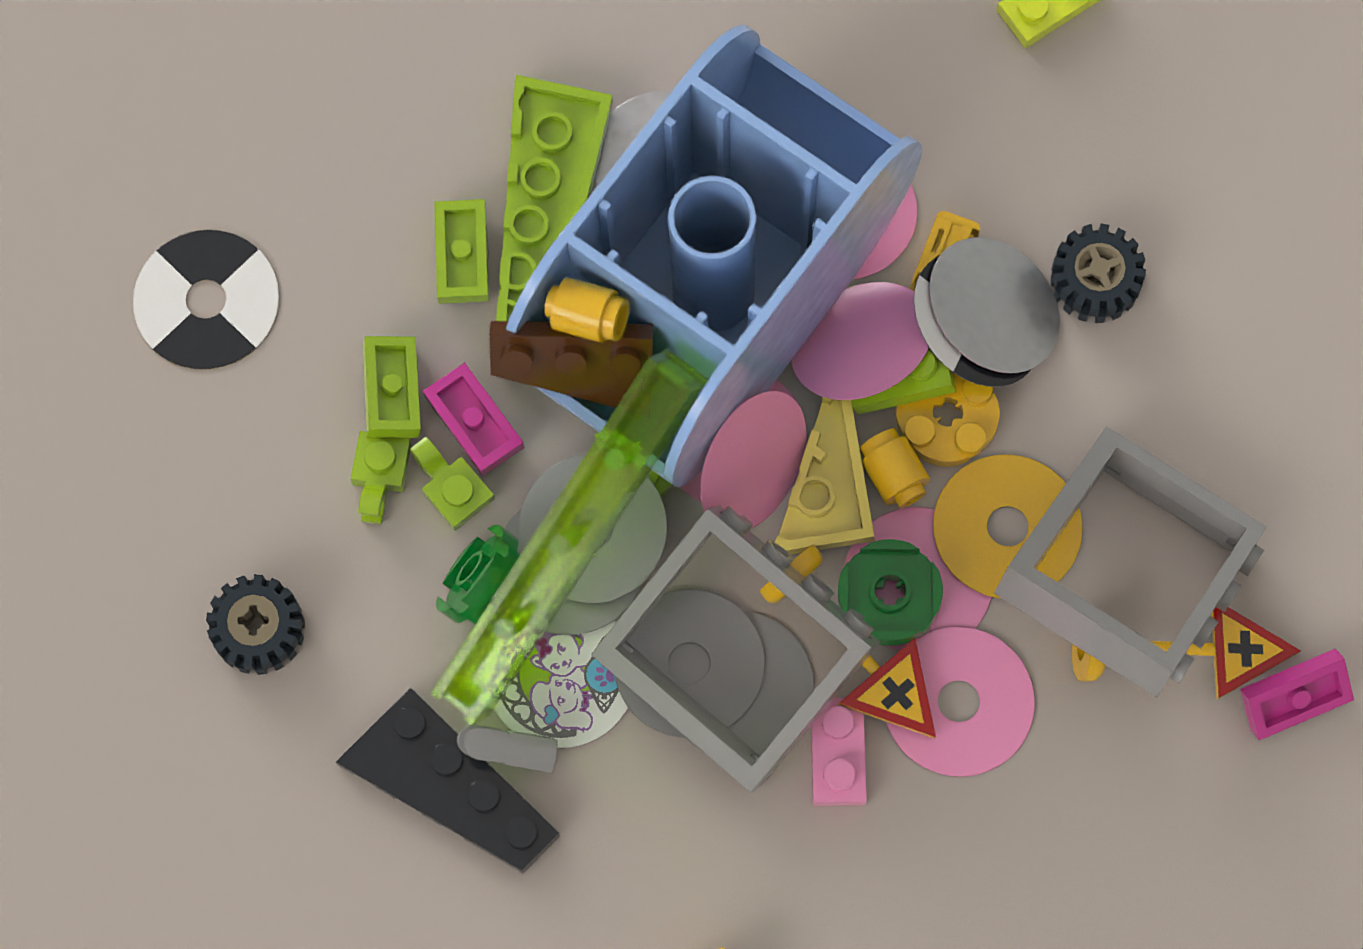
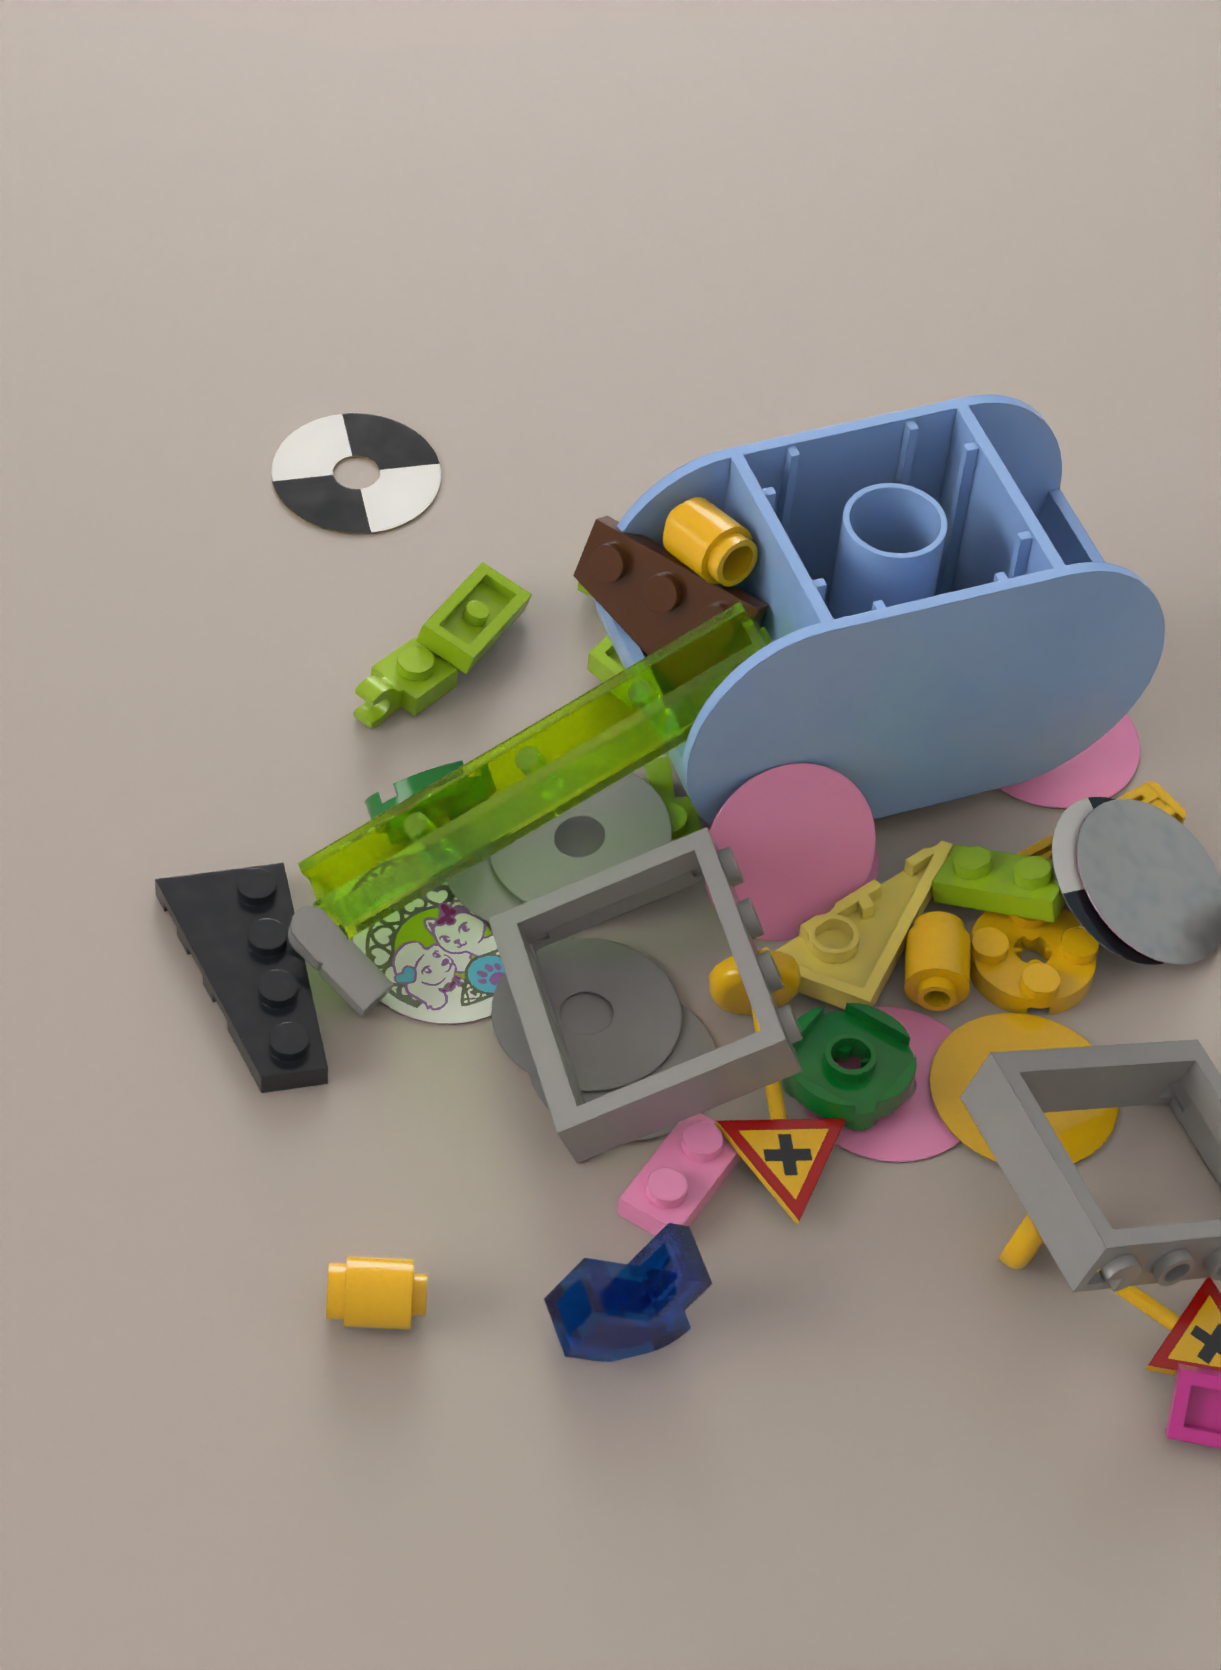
camera: 25 degrees right, 25 degrees down
(259, 643) = (177, 727): black wheel -> none
(454, 488) = (464, 729): lime plate -> none
(473, 419) = (531, 679): dark pink plate -> none
(862, 343) = (979, 832): bright pink sticker -> none
(876, 882) = (632, 1308): none -> clear blue brick
(1003, 710) = (887, 1257): bright pink sticker -> none

